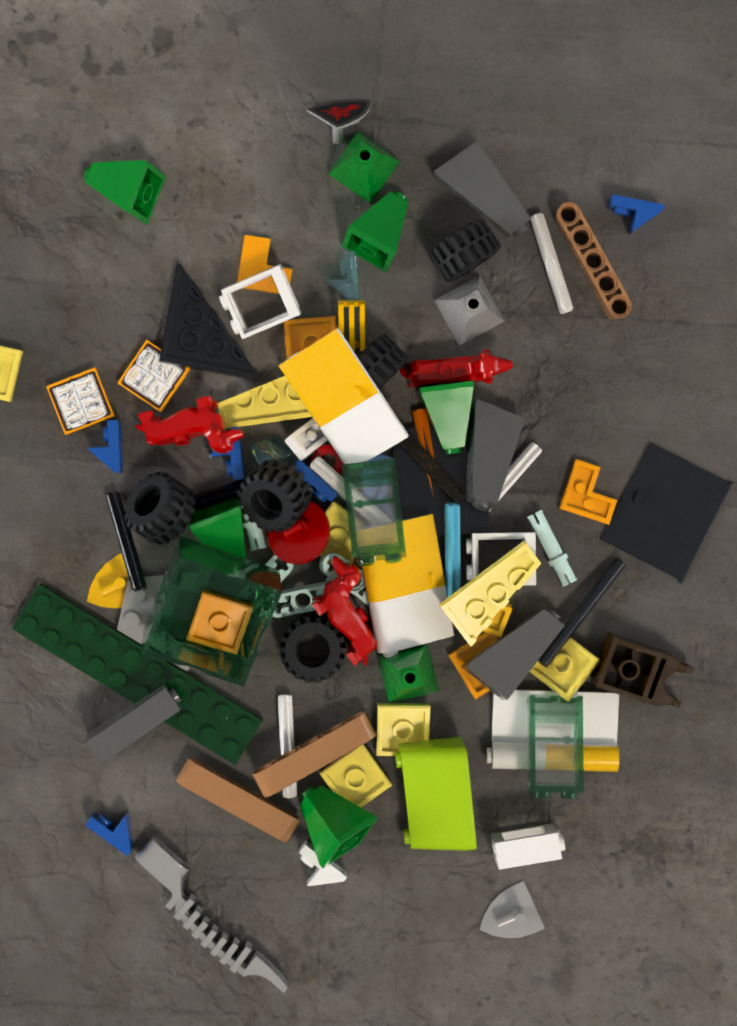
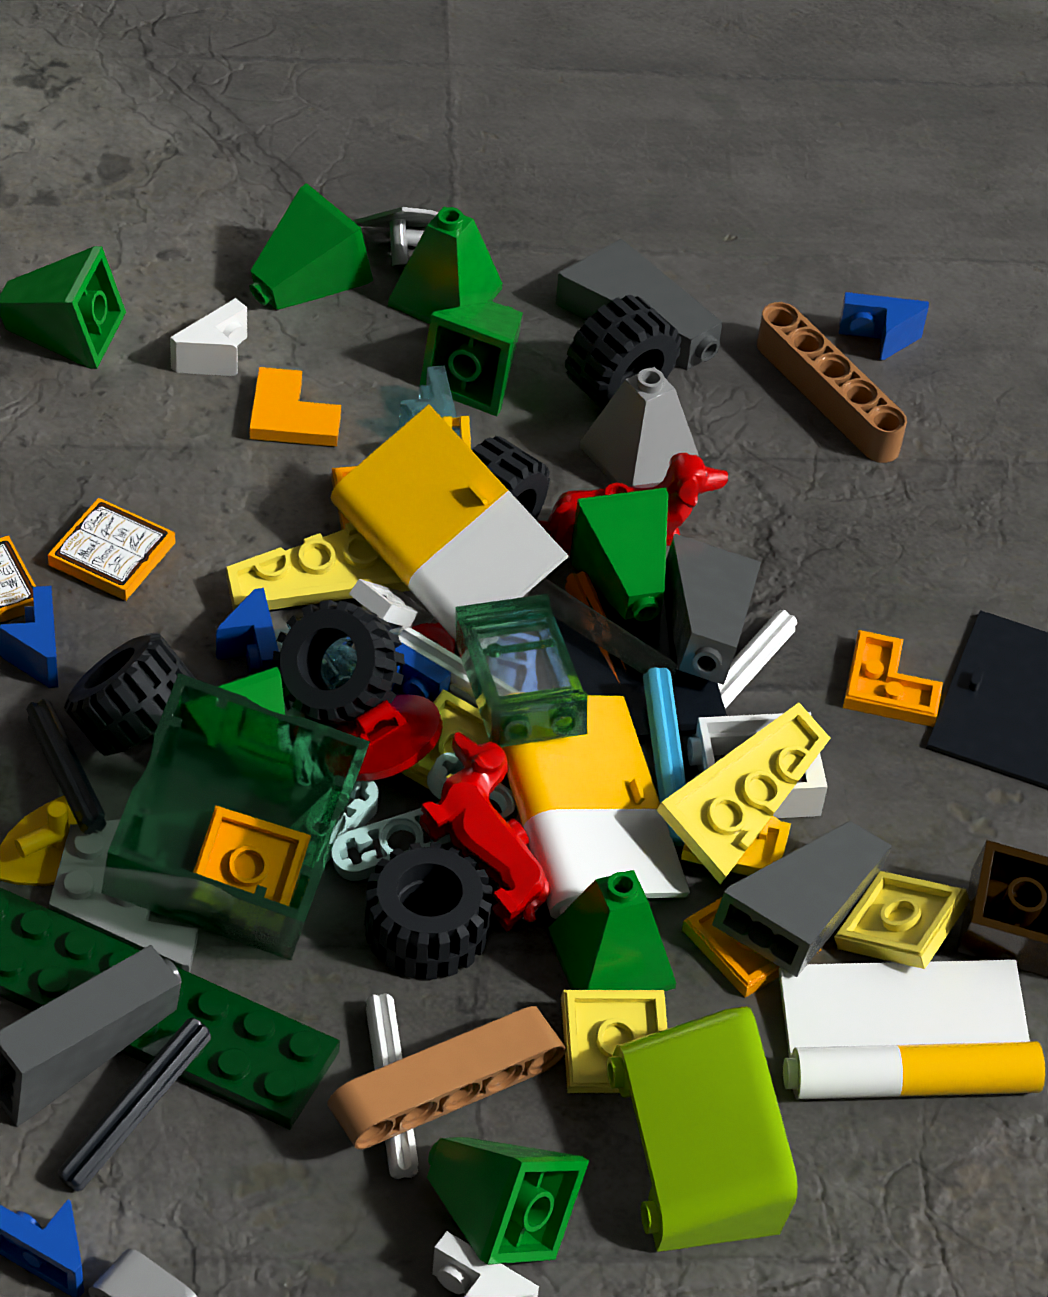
camera: 10 degrees left, 40 degrees down
(160, 754) = (134, 1104): none -> black axle
(190, 424) = (179, 586): red animal -> none
(197, 336) = (187, 495): black tile -> none
(210, 217) = (211, 342): none -> white slope
(238, 323) = (279, 402): white window -> none
(238, 799) = (301, 1177): medium nougat beam -> none
(278, 144) = (310, 254): none -> green slope
(356, 777) = (537, 1115): light yellow plate -> none
(527, 846) = (895, 1208): white window -> none
(551, 263) = (765, 392): white axle -> none
(552, 548) = (856, 766): light aqua pin -> none
(555, 747) = (918, 1027): clear door -> none
(582, 611) = (915, 839): black piece -> none

